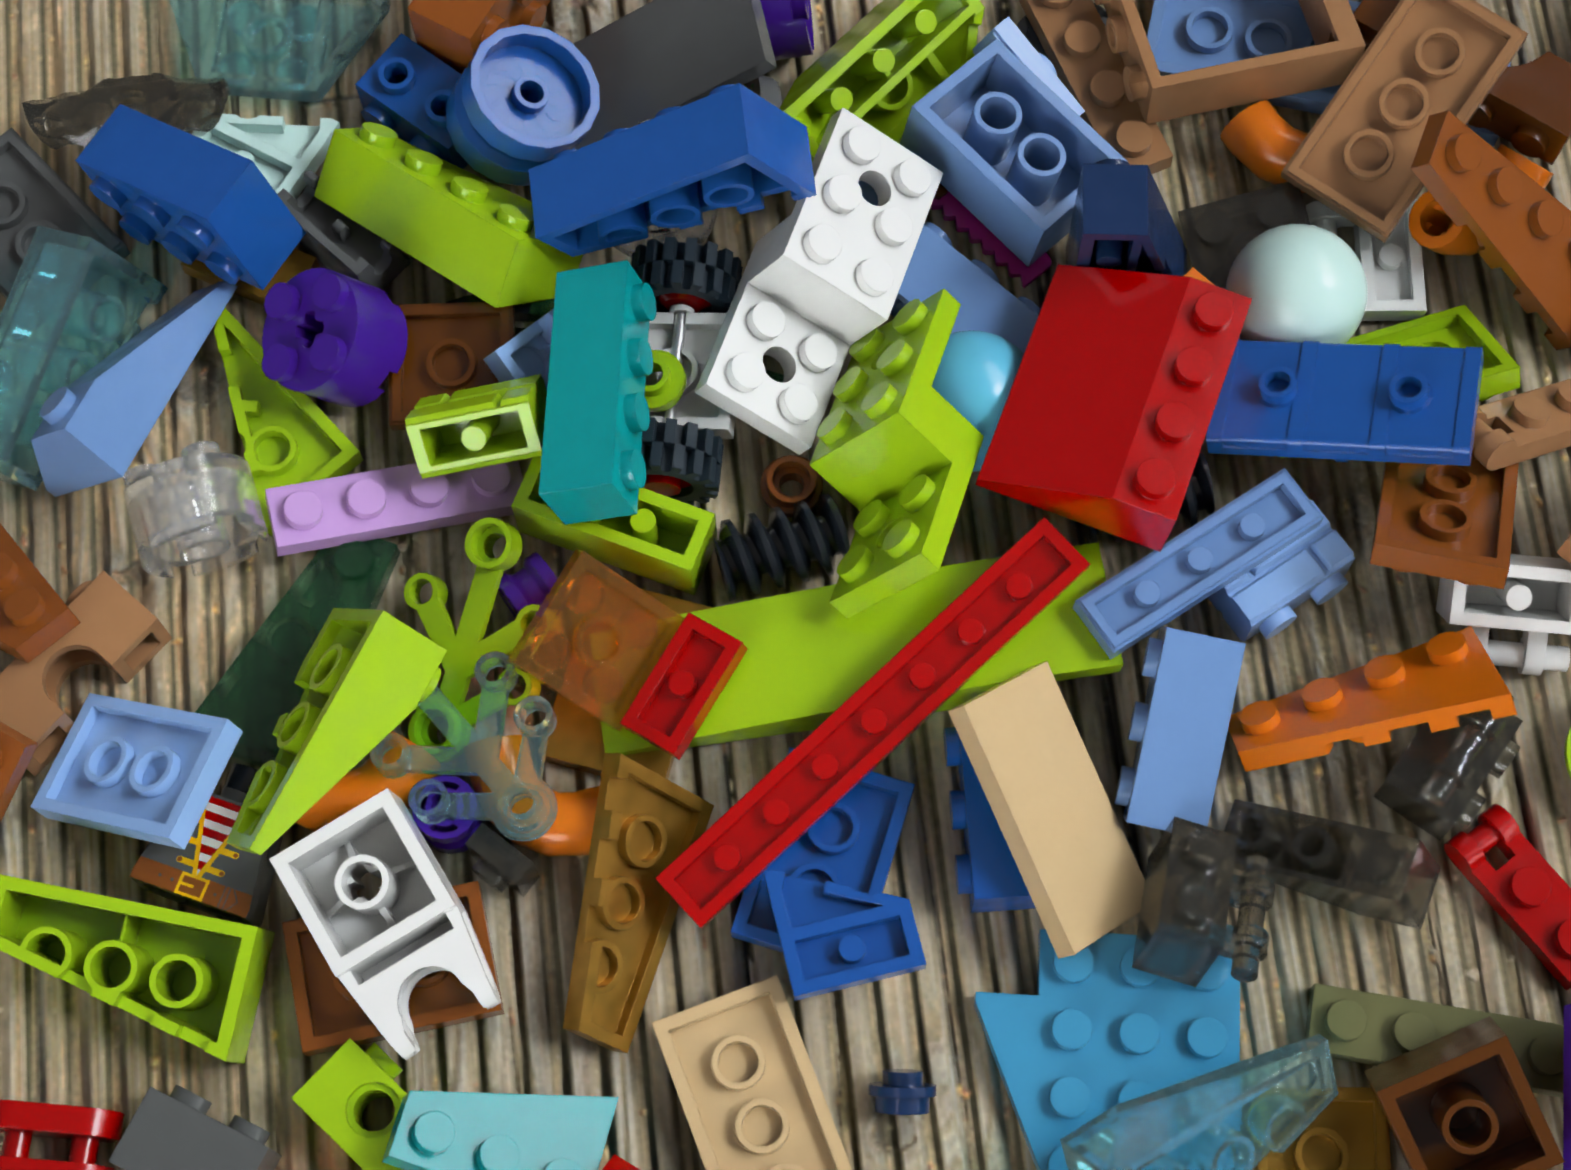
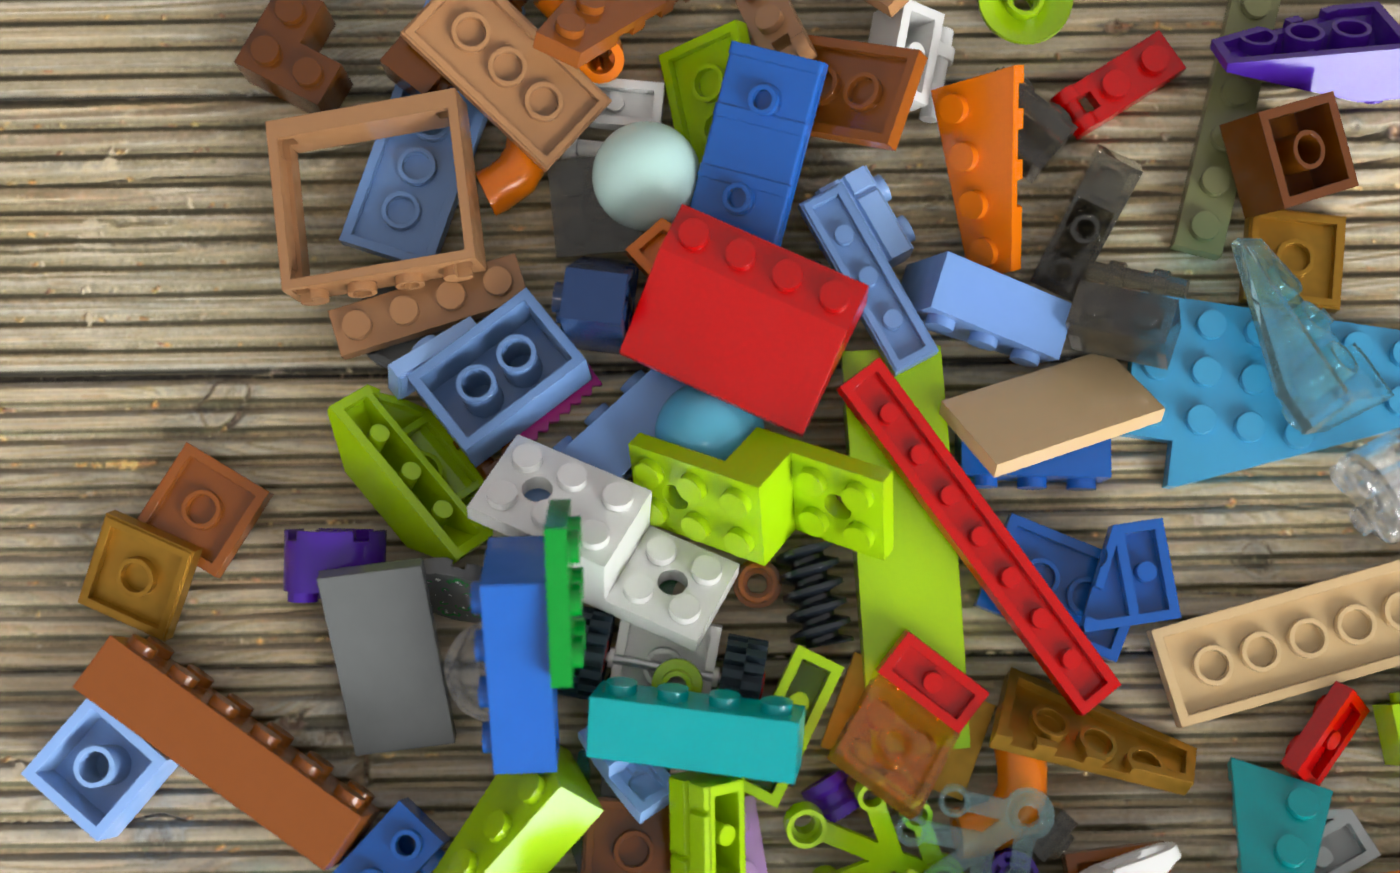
camera: 85 degrees left, 10 degrees up
(521, 102) = (420, 775): blue wheel -> none
(746, 193) = (564, 592): none -> plate
(902, 1092) = (1240, 546): dark blue plate -> none

